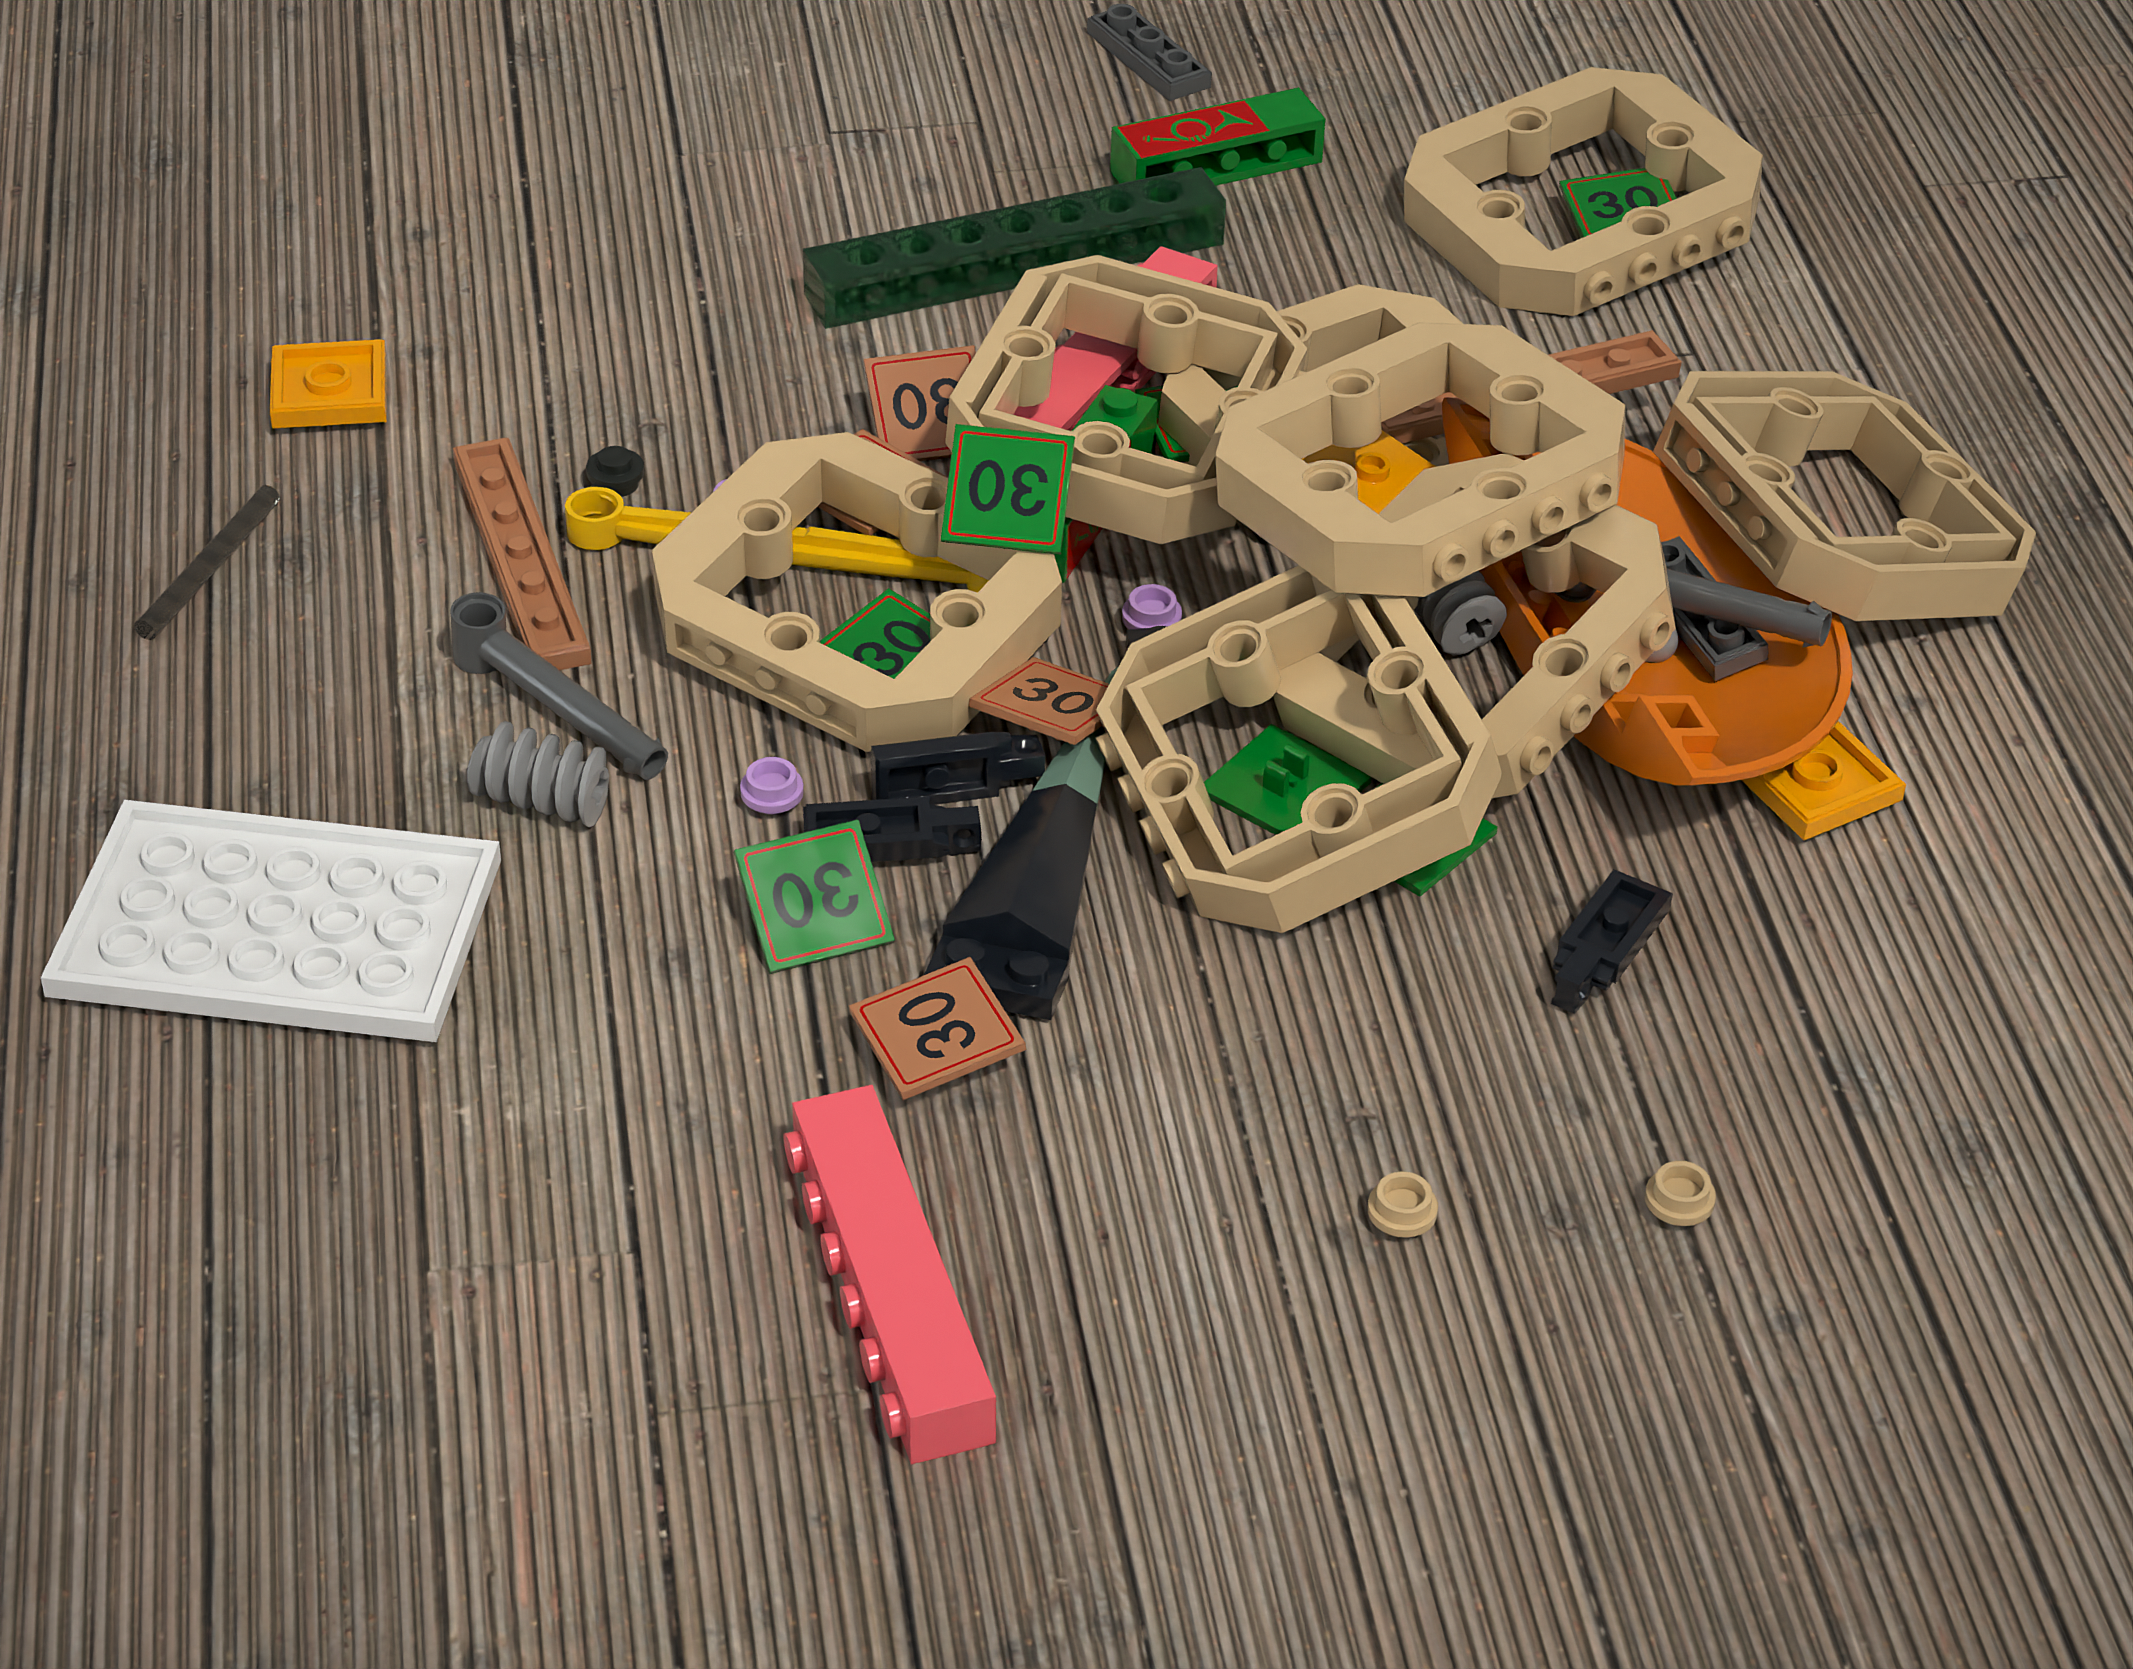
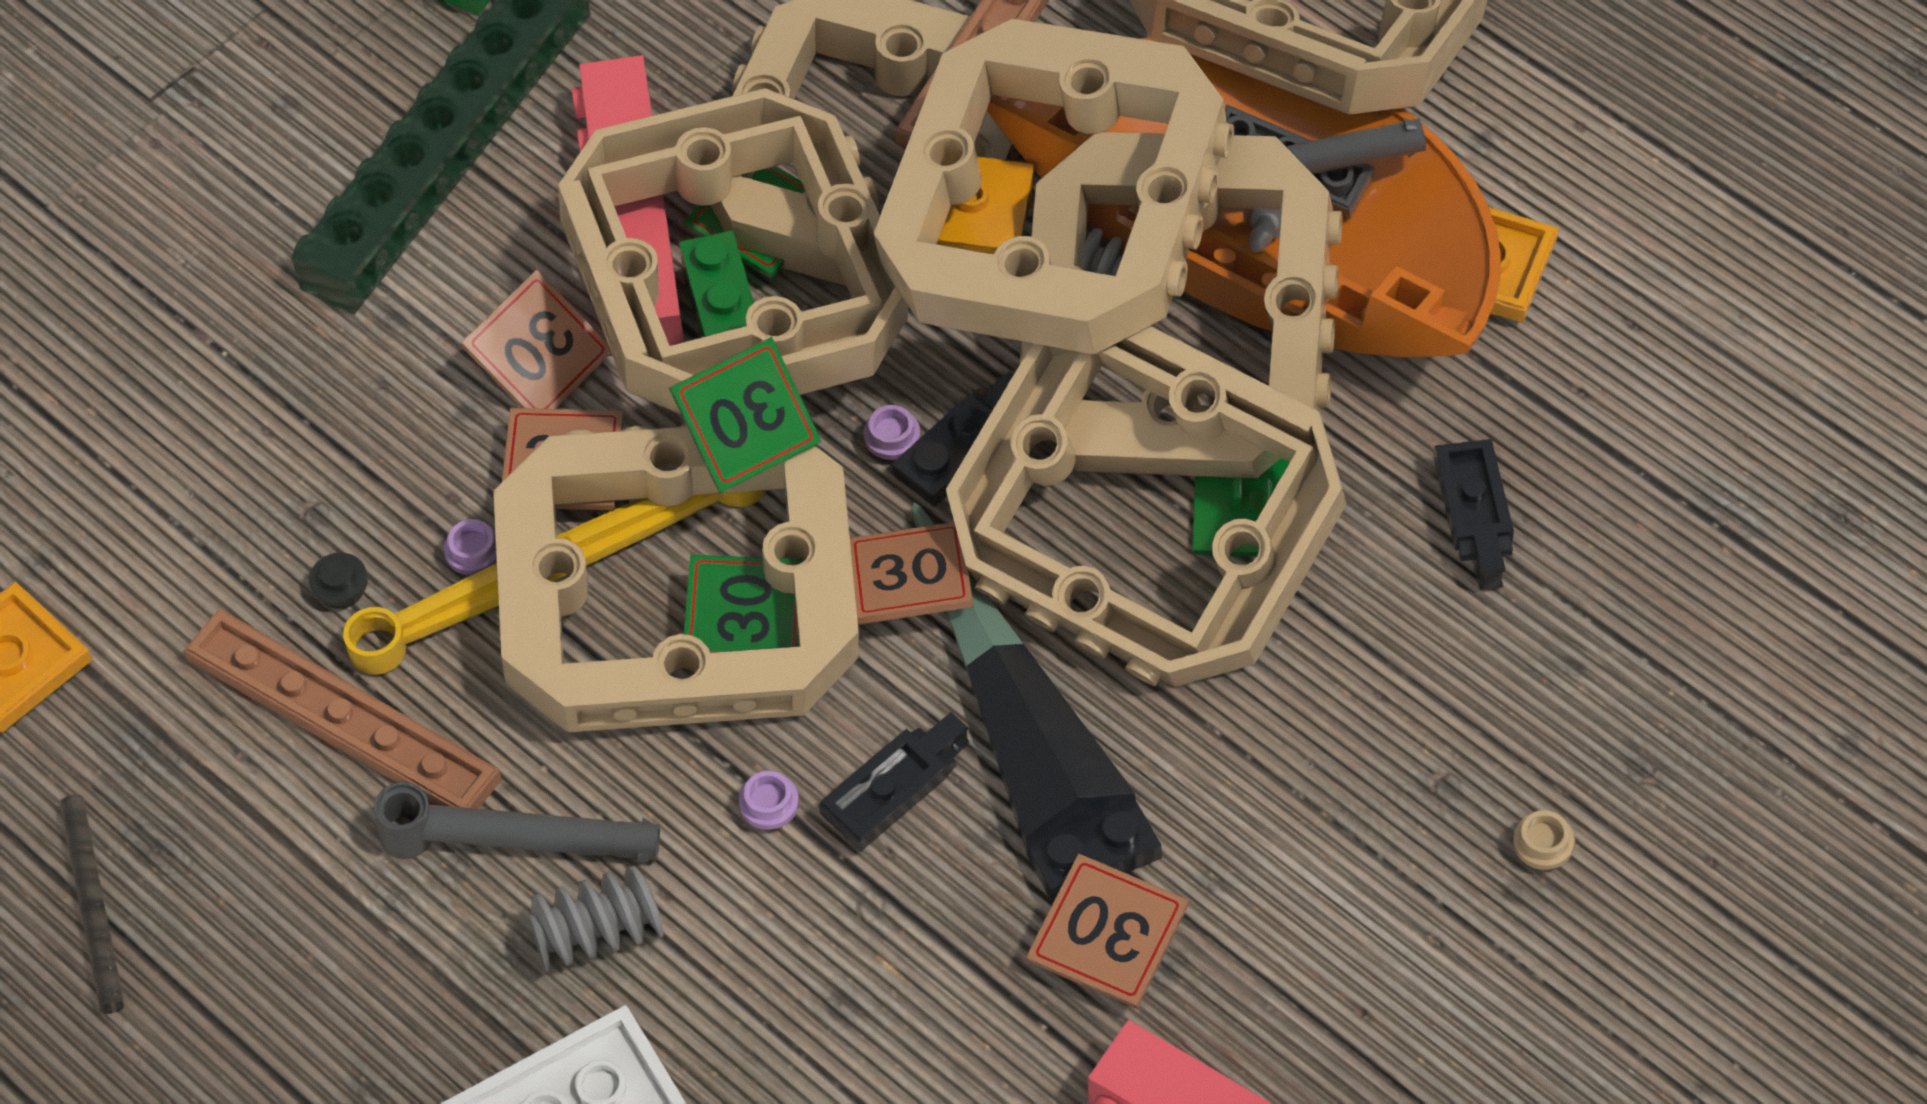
camera: 35 degrees left, 15 degrees up
(813, 896) = (908, 880): piece -> none
(954, 766) = (892, 687): black hinge -> none
(1275, 777) = (1128, 524): green piece -> none
(1680, 1194) = (1708, 695): tan plate -> none

